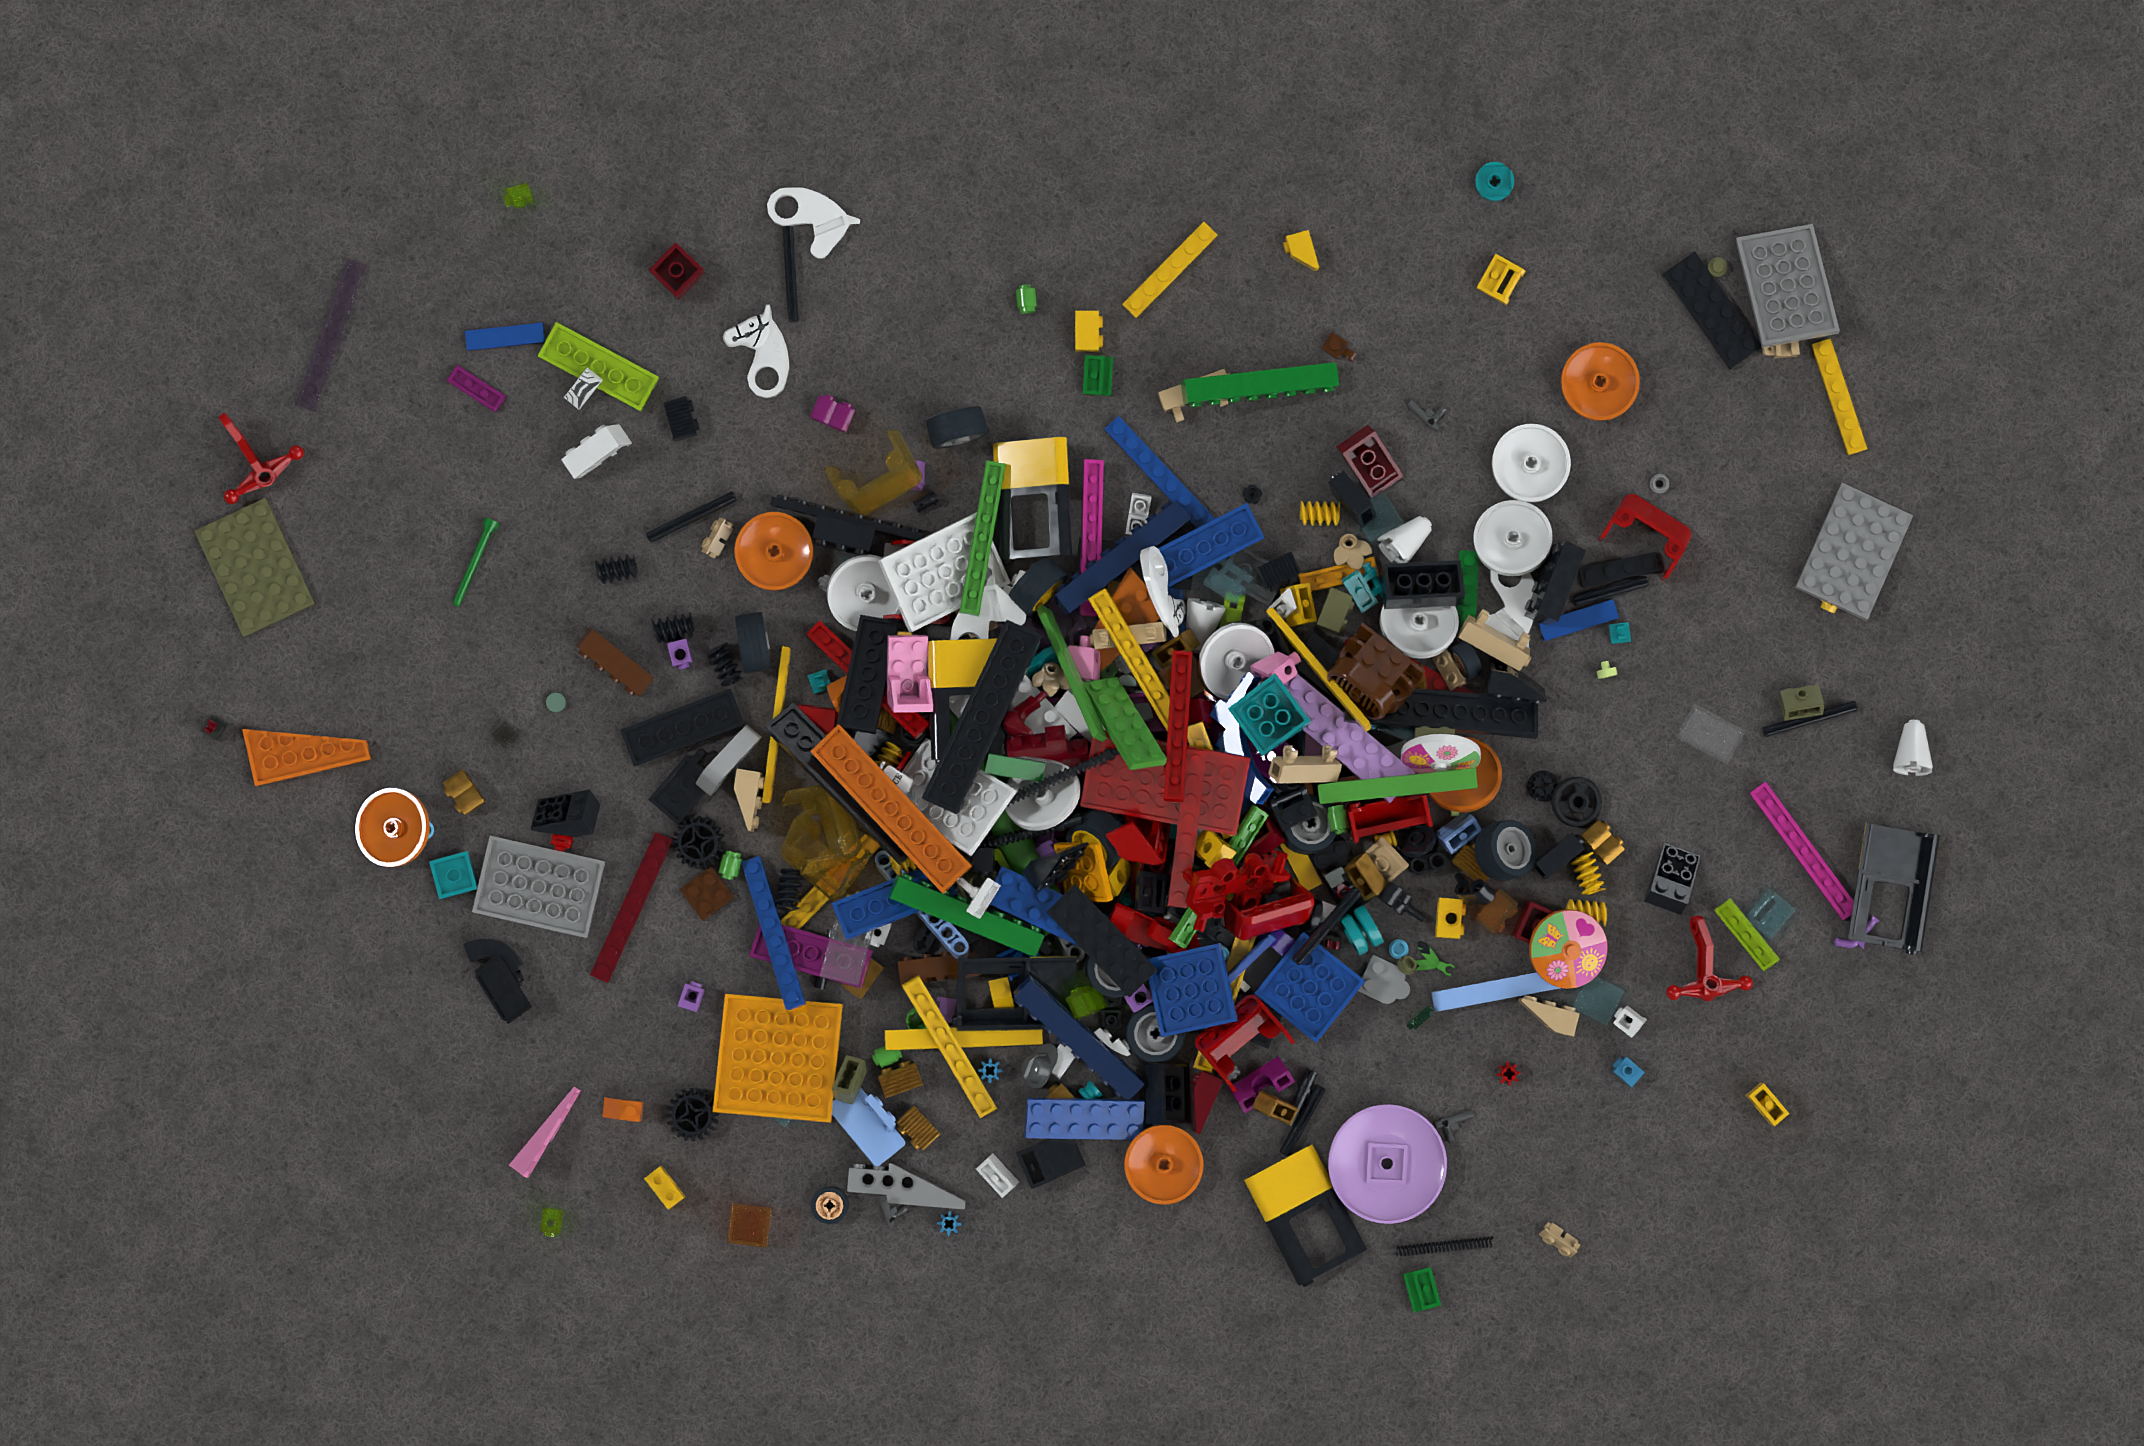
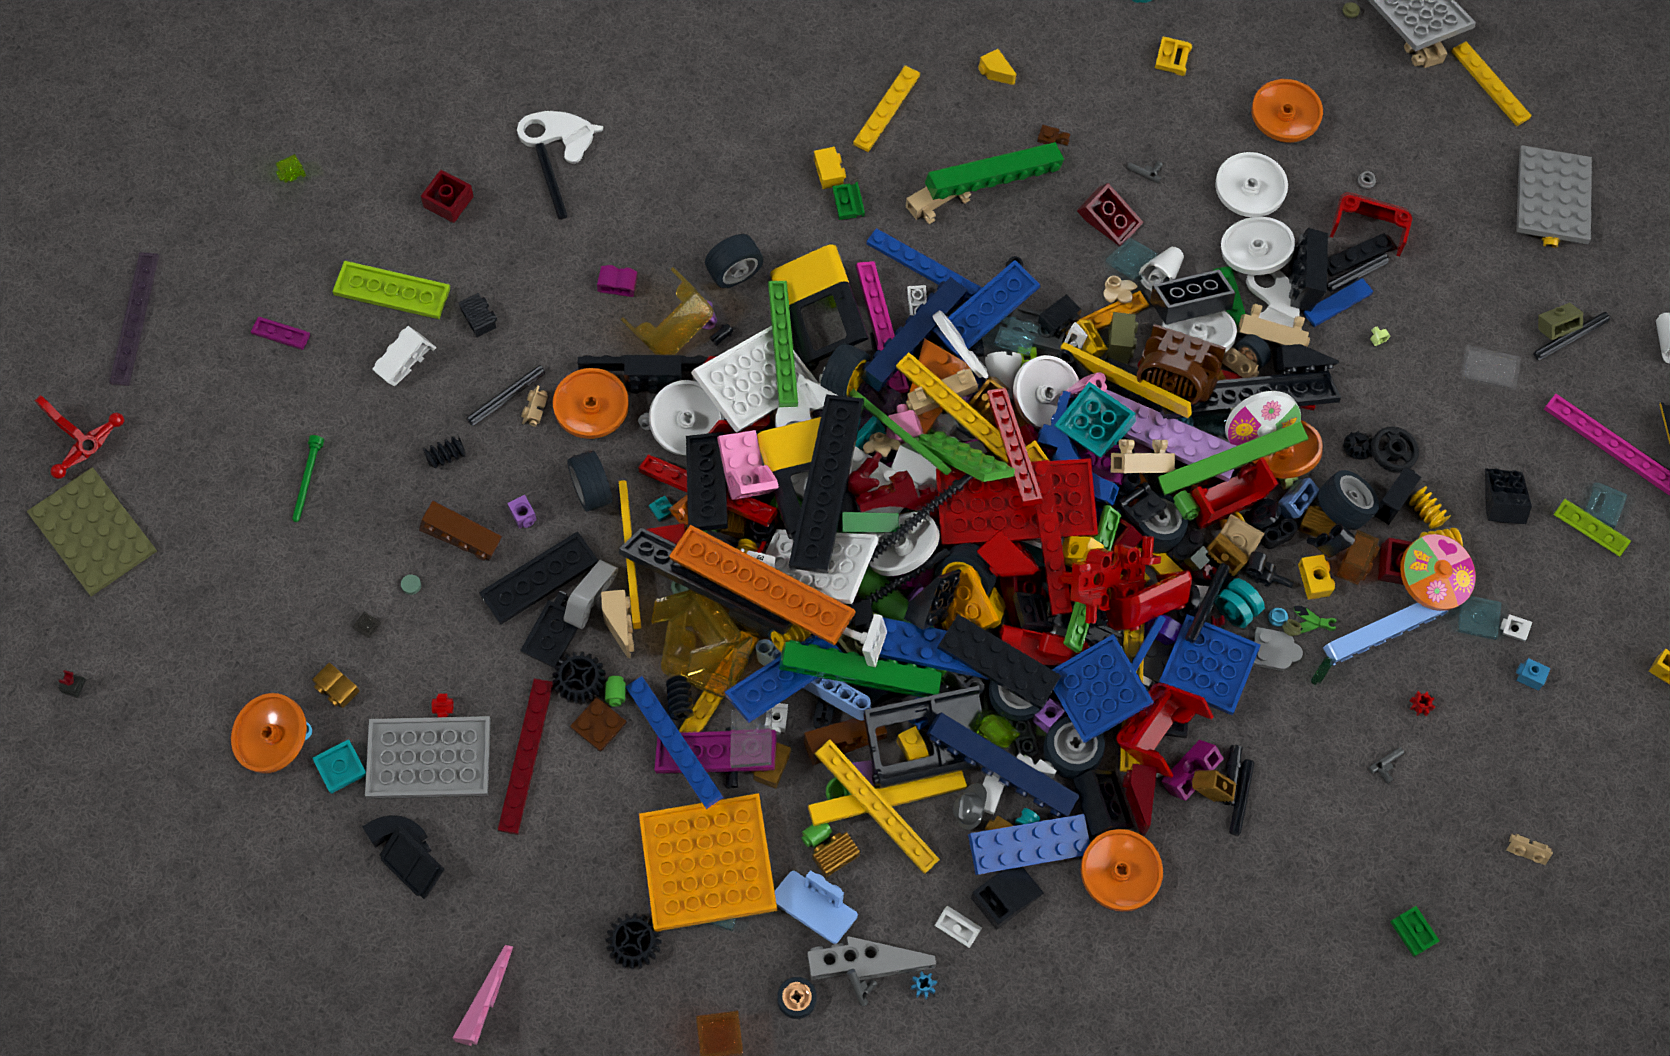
camera: 15 degrees left, 20 degrees down
(290, 755) = (157, 691): orange wing -> none
(505, 336) = (298, 285): blue tile -> none
(567, 814) = (443, 678): black slope -> none
(583, 388) = (381, 308): white tile -> none
(623, 1109) = (560, 953): orange slope -> none
(664, 1187) = (621, 1021): yellow brick -> none
(673, 628) = (511, 490): black piece -> none
(686, 1002) = (602, 817): medium lavender brick -> none
(724, 665) = (566, 514): black piece -> none
(771, 350) = (546, 244): white animal -> none
(849, 1079) = (785, 863): olive brick -> none
(918, 1128) = (866, 897): pearl gold brick -> none
(990, 1064) = (922, 829): dark azure gear -> none
(1026, 299) = (767, 155): bright green brick -> none
(1291, 1189) = (1252, 865): piece -> none
(1319, 513) = (1079, 264): yellow piece -> none
(1352, 499) = (1106, 242): black brick -> none
(1357, 587) = (1144, 320): teal plate -> none
(1416, 1168) = (1357, 793): lavender dish -> none
(1447, 1243) = (1421, 885): black piece -> none
(1557, 1020) = (1443, 638): tan slope -> none
(1602, 842) = (1434, 478): pearl gold brick -> none
(1619, 633) = (1378, 304): teal tile -> none
(1708, 985) = (1572, 575): red piece -> none
(1712, 310) = (1359, 42): black plate -> none

